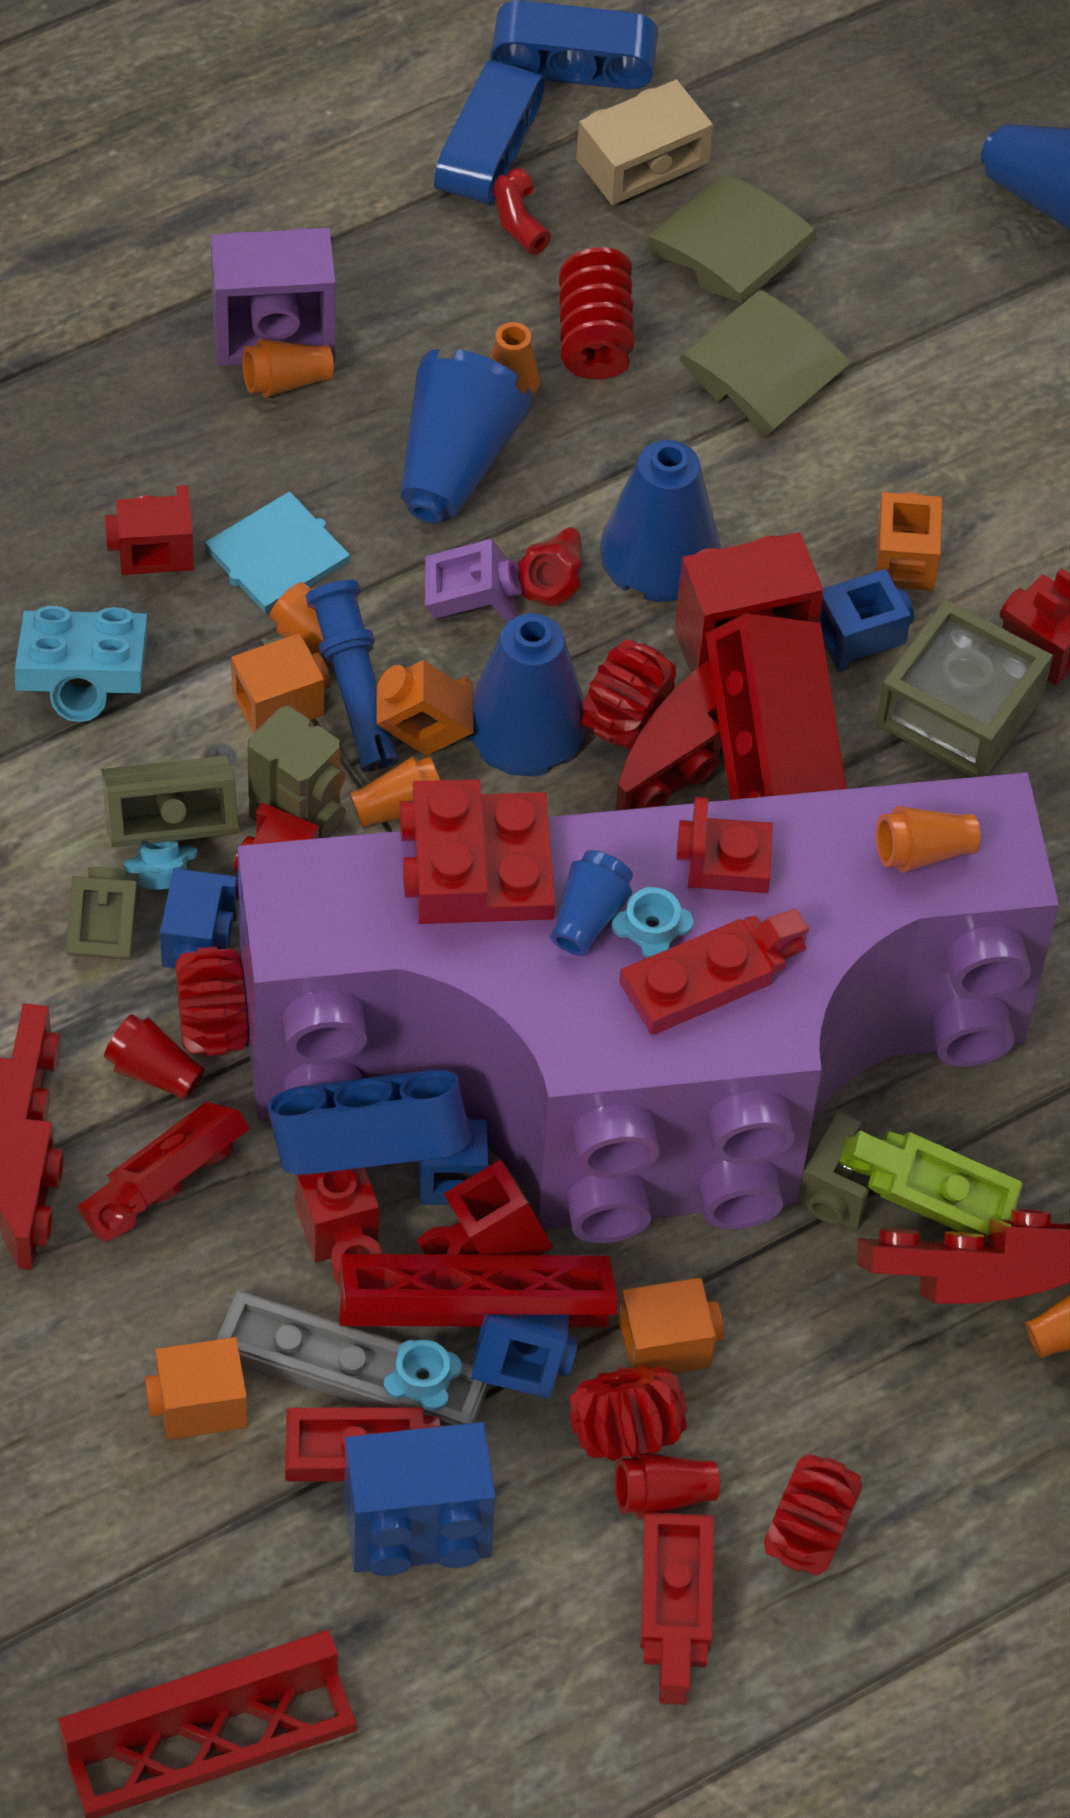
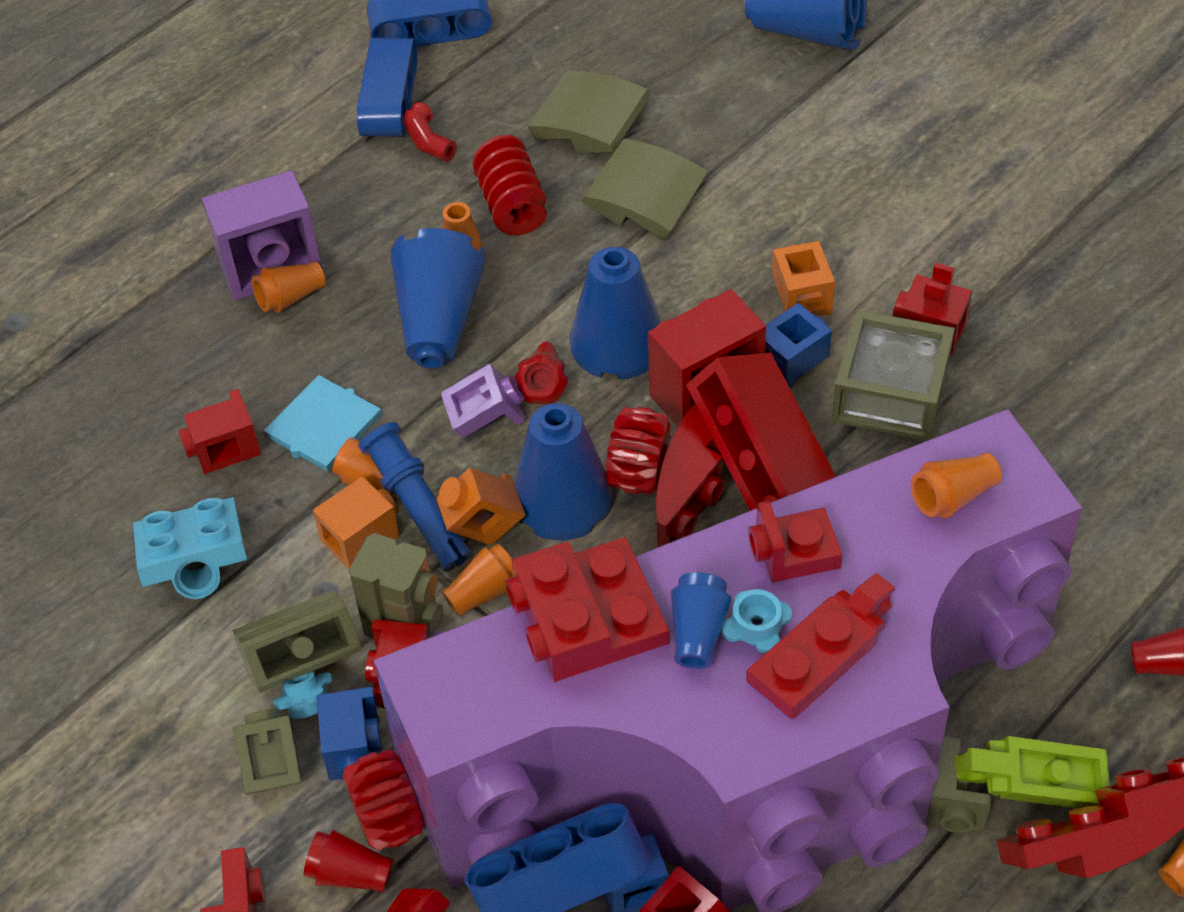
camera: 10 degrees left, 5 degrees down
(644, 141) = (502, 62): tan brick -> none

